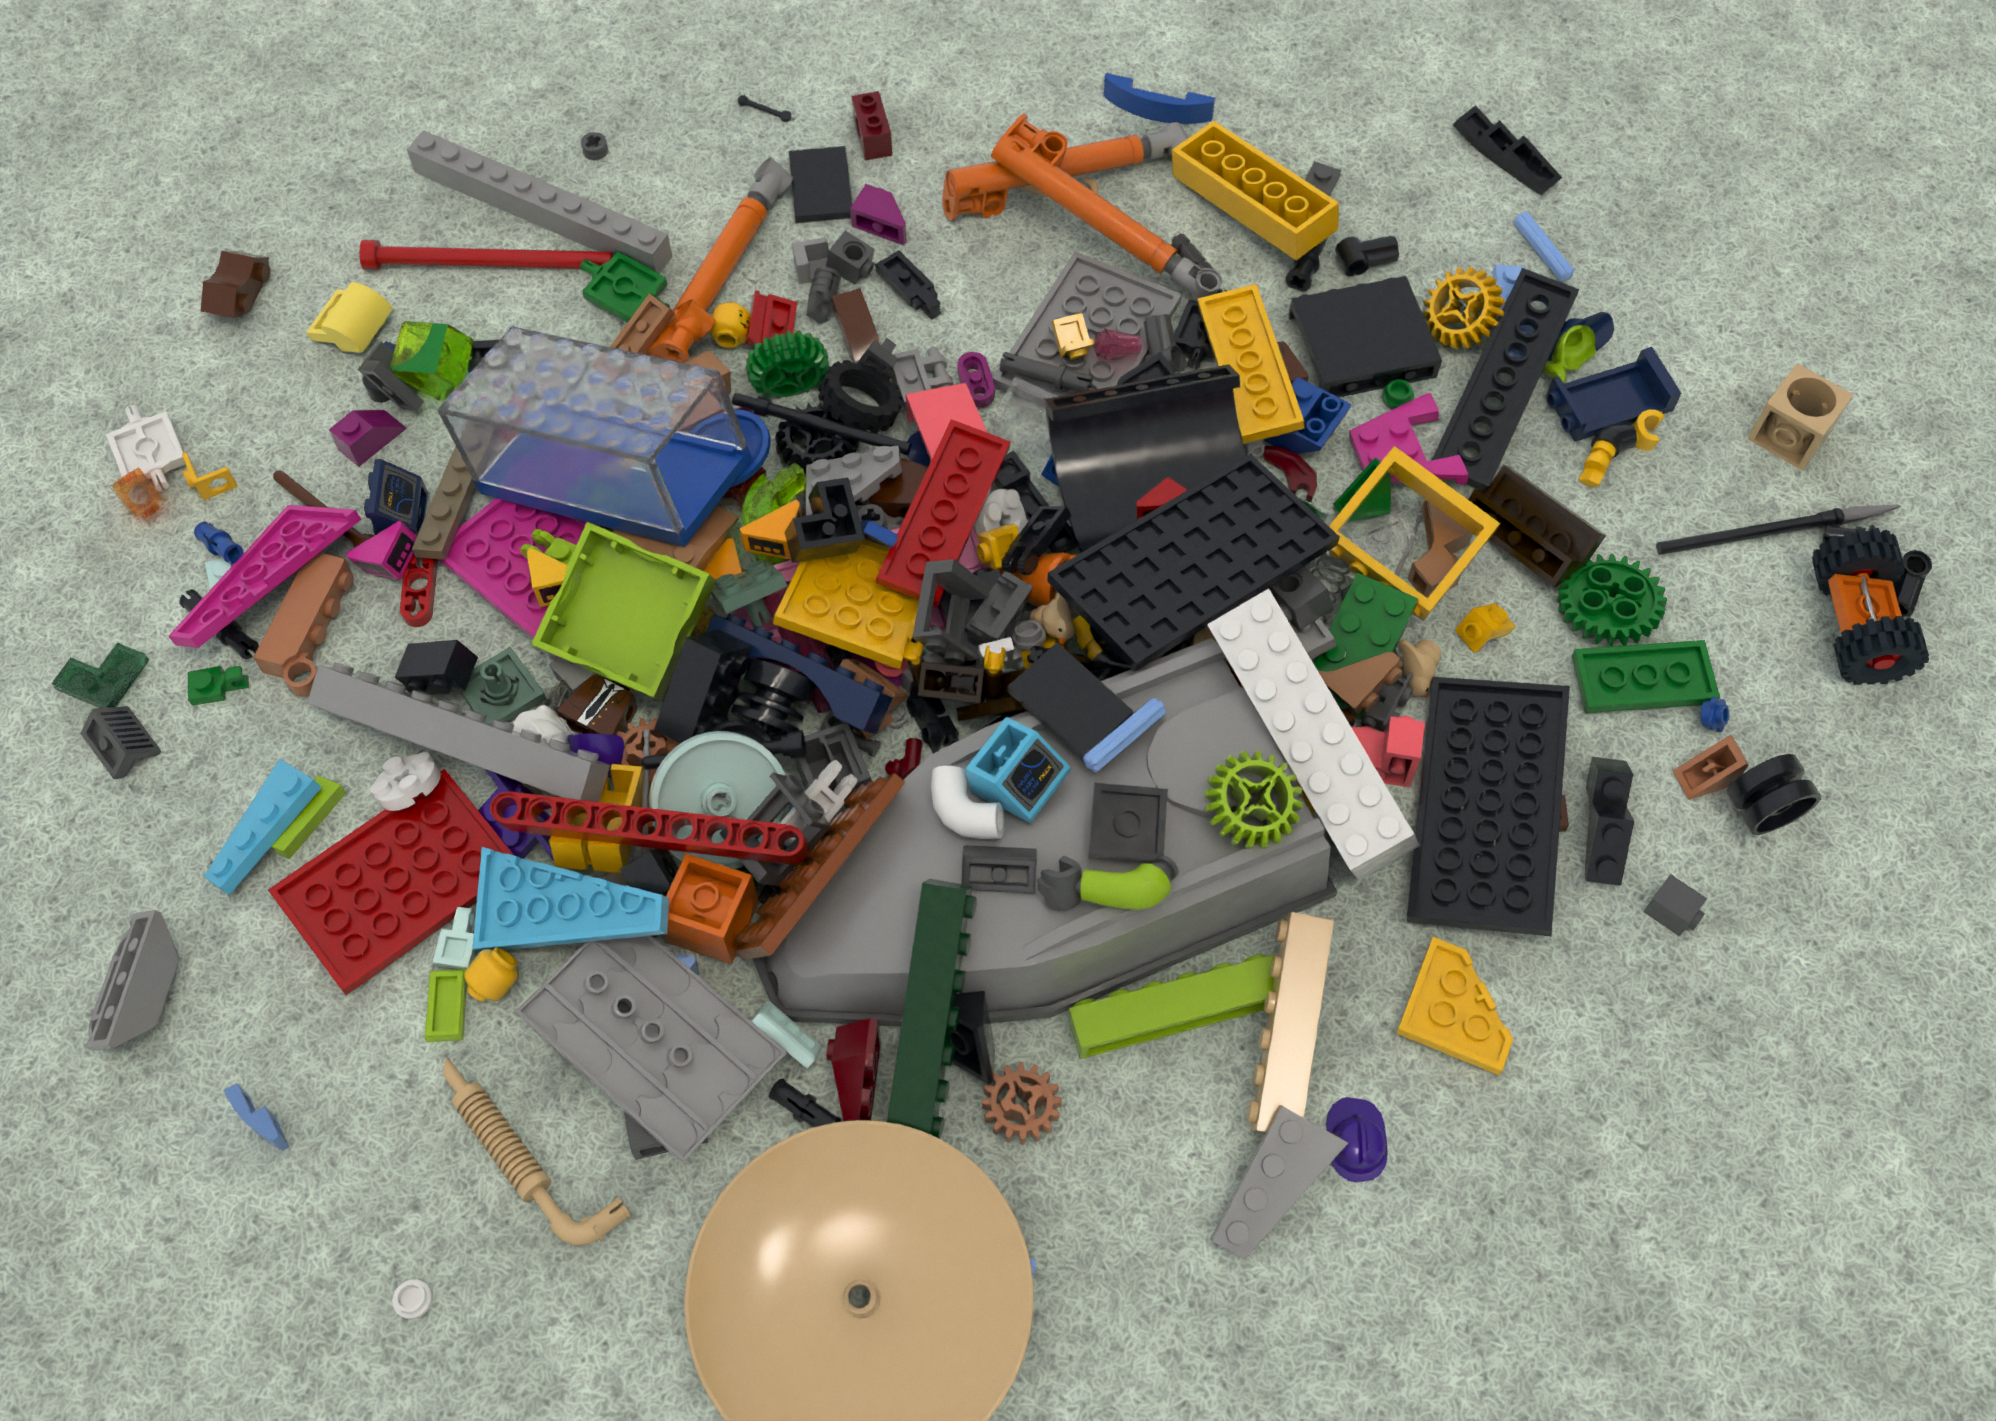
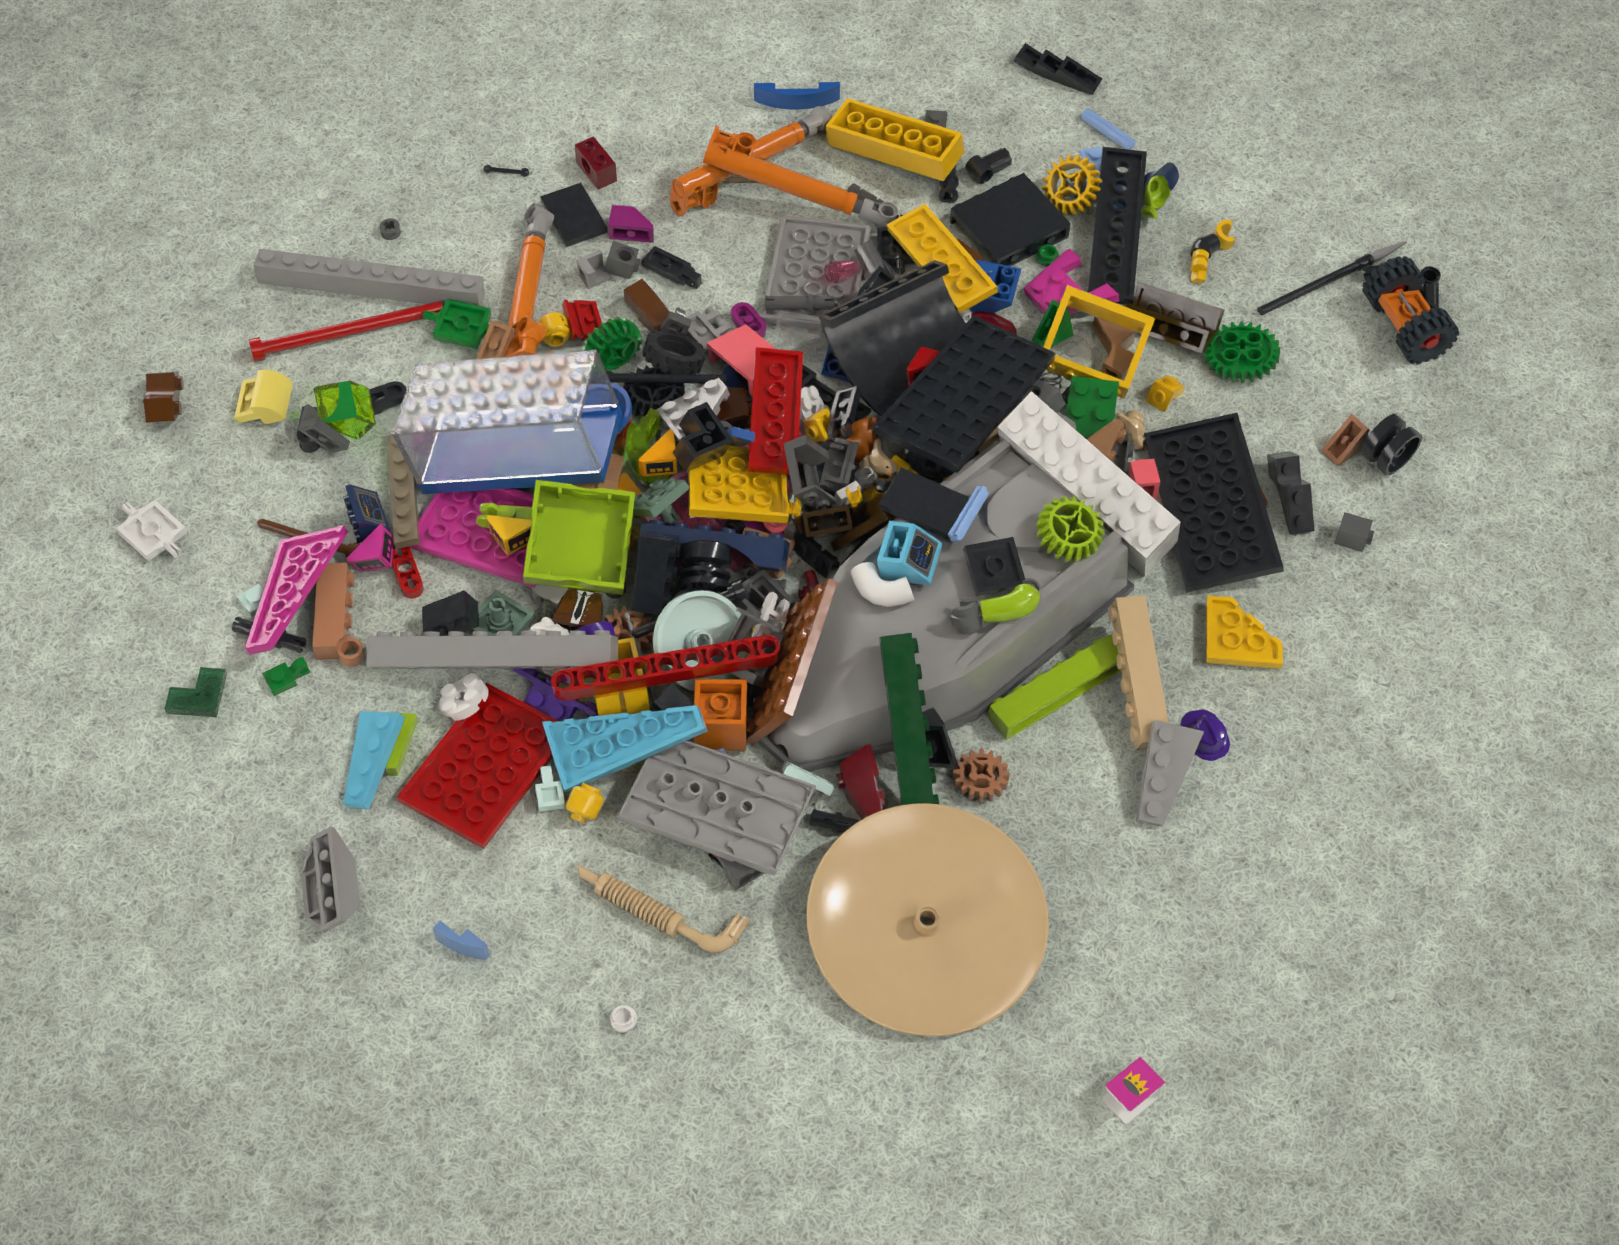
camera: 20 degrees left, 5 degrees down
(117, 739) = (231, 733): dark grey panel -> none
(136, 478) = (153, 562): clear orange brick -> none
(202, 483) = (208, 544): yellow bracket -> none
(218, 542) = (232, 577): blue pin -> none
(364, 433) = (314, 477): magenta slope -> none
(446, 1006) = (558, 834): lime tile -> none
(821, 293) = (611, 290): dark grey hinge -> none
(999, 868) = (921, 619): dark grey slope -> none
(1072, 336) = (808, 273): yellow bracket -> none
(1613, 396) = (1193, 218): dark blue panel -> none
(1645, 676) = (1281, 395): green plate -> none
(1714, 714) = (1335, 406): blue plate -> none
(1800, 416) = (1322, 199): tan brick -> none

